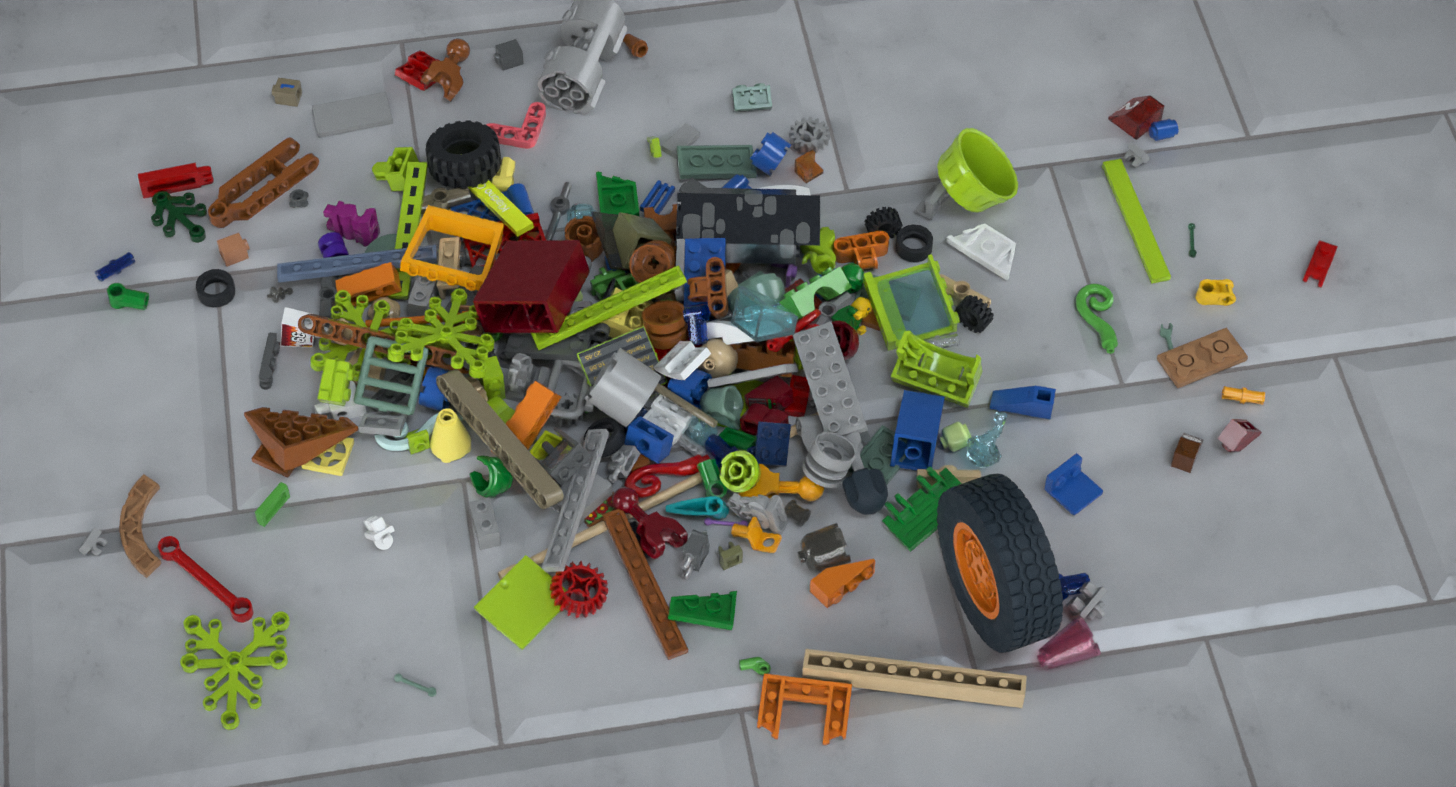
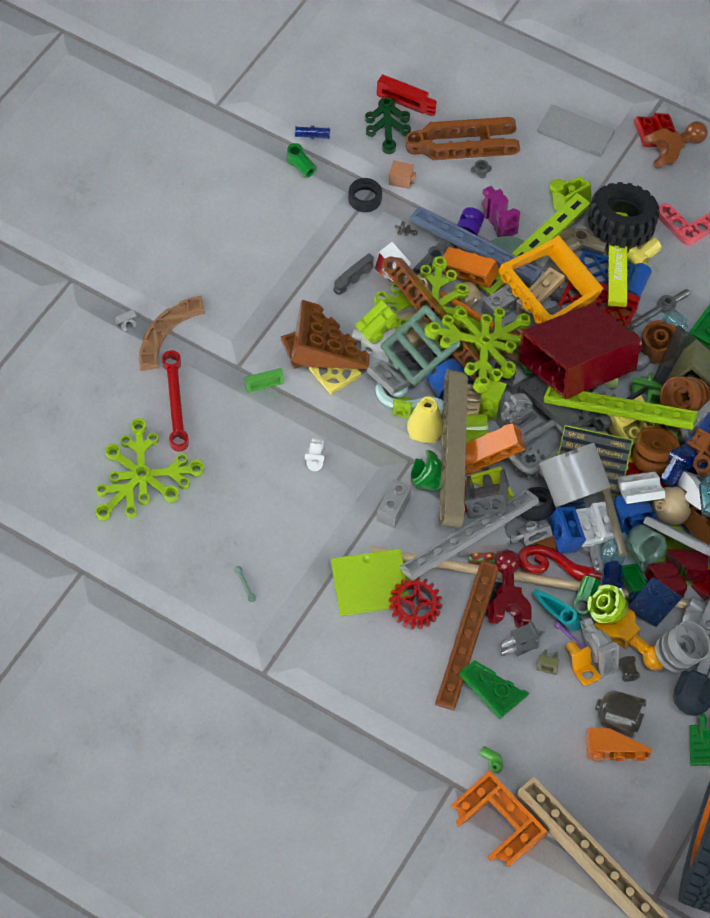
camera: 40 degrees right, 5 degrees up
(287, 92) = (543, 82): dark tan brick -> none

